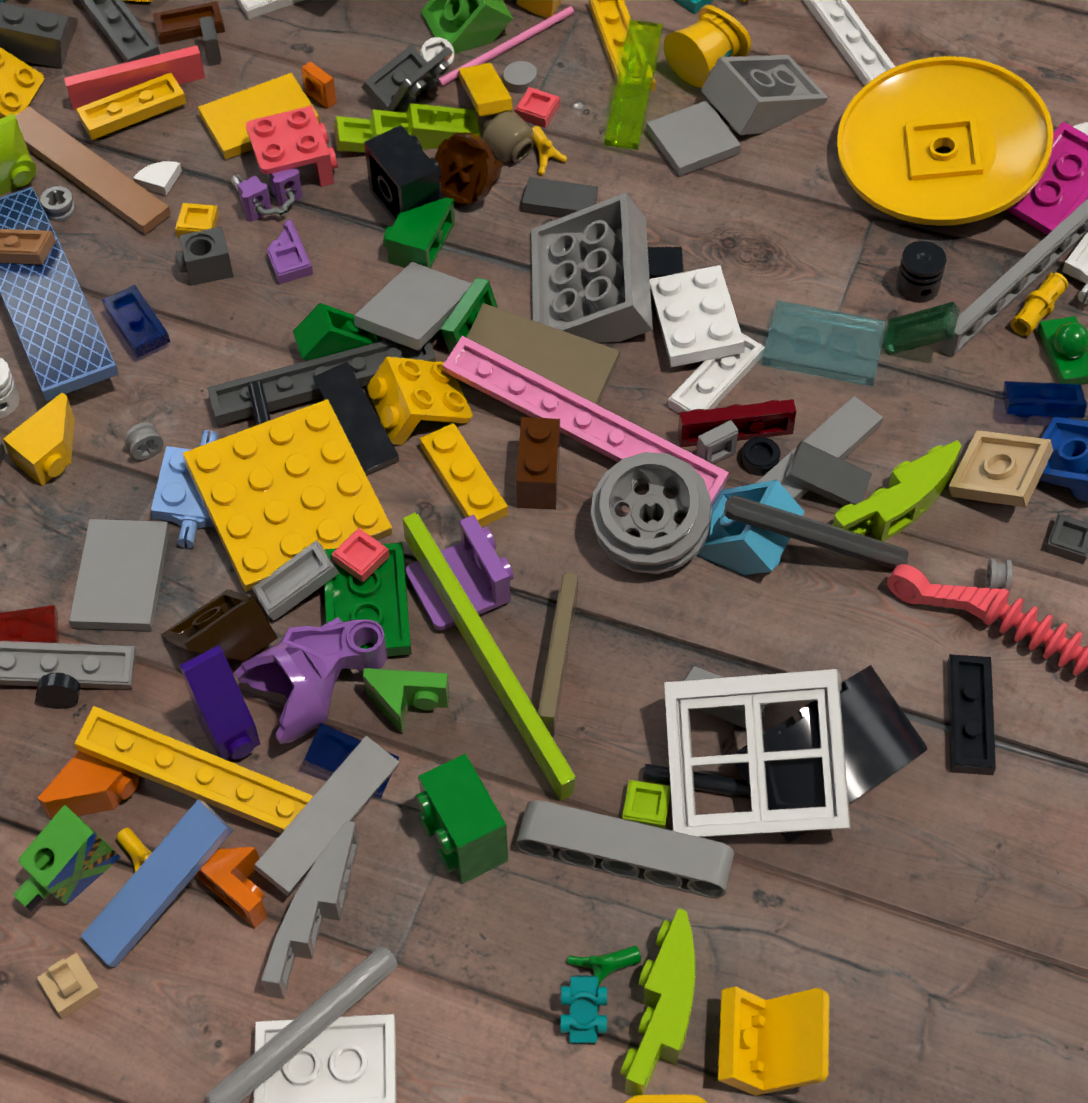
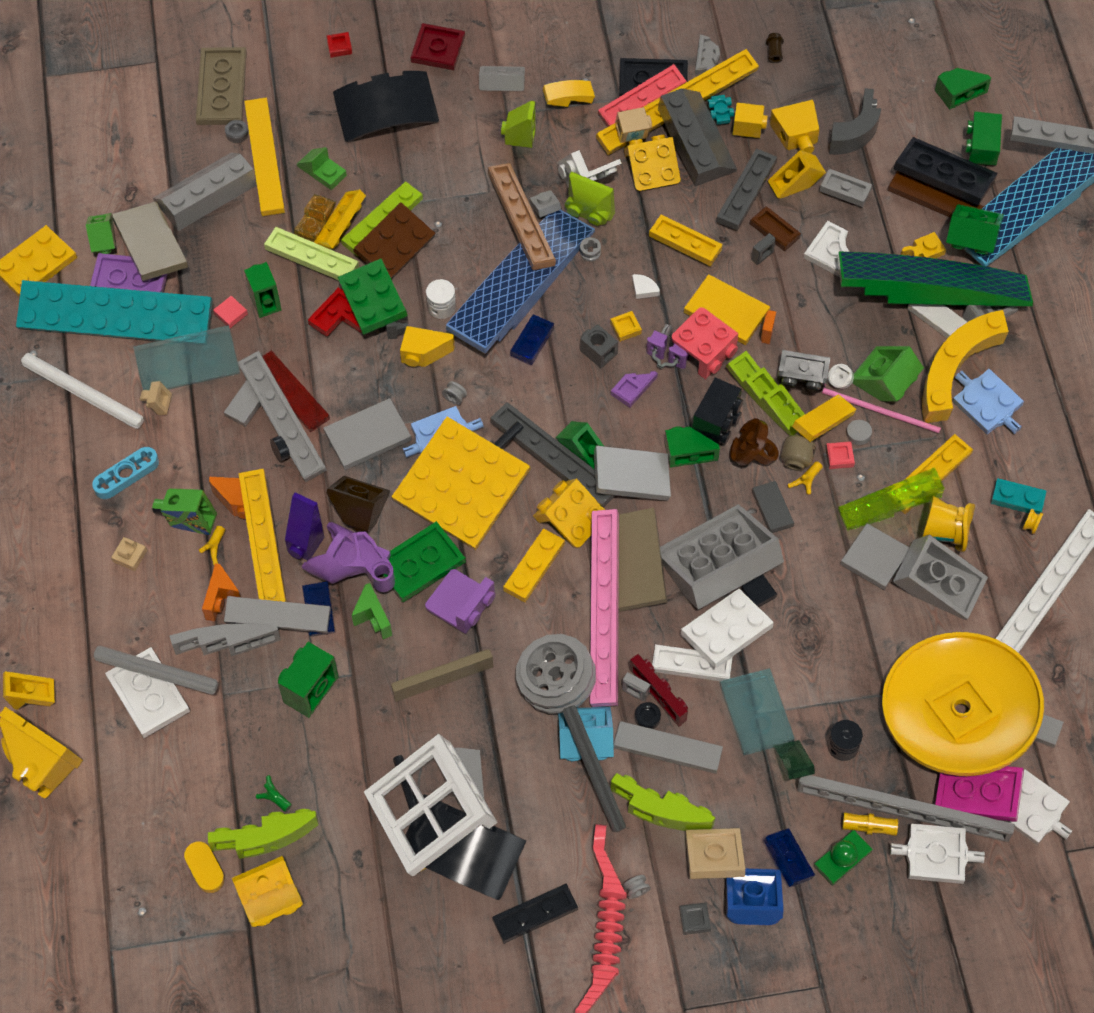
camera: 60 degrees right, 5 degrees up
(91, 172) = (625, 248): medium nougat tile -> none
(101, 83) = (699, 222): coral tile -> none
(156, 883) = (195, 558): medium blue tile -> none
(295, 580) = (410, 519): light grey tile -> none
(356, 417) = (533, 488): black tile -> none
(360, 555) = (441, 541): coral tile -> none
(466, 311) = (633, 503): green plate -> none
(489, 657) = (416, 638): lime tile -> none
(538, 463) = (561, 598): reddish brown brick -> none
(583, 997) = (242, 796): teal piece -> none
(625, 849) = (342, 770): light grey beam -> none
(647, 803) = (376, 767): lime tile -> none
(827, 475) = (650, 758): dark grey tile -> none

